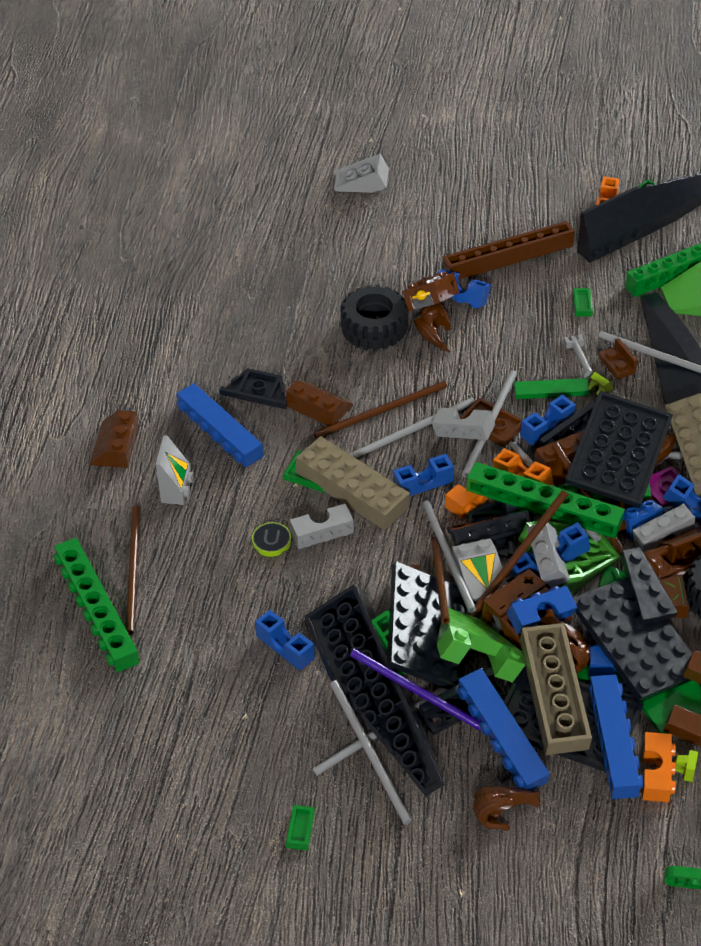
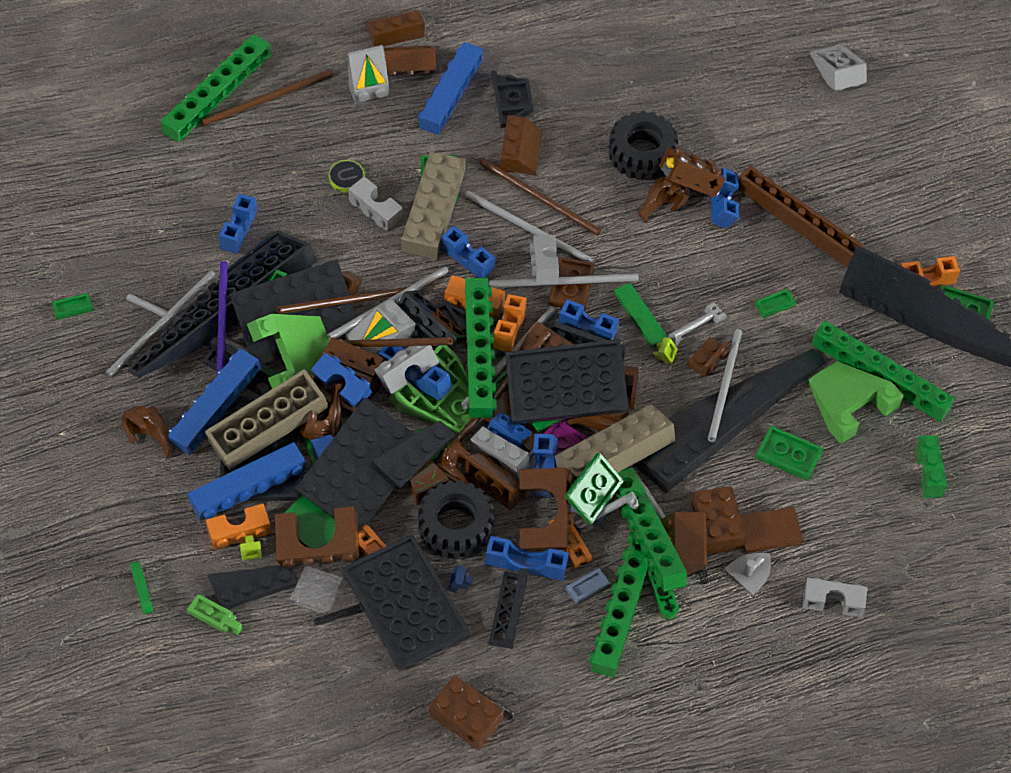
camera: 60 degrees right, 10 degrees up
(172, 426) = (410, 59): none -> reddish brown slope

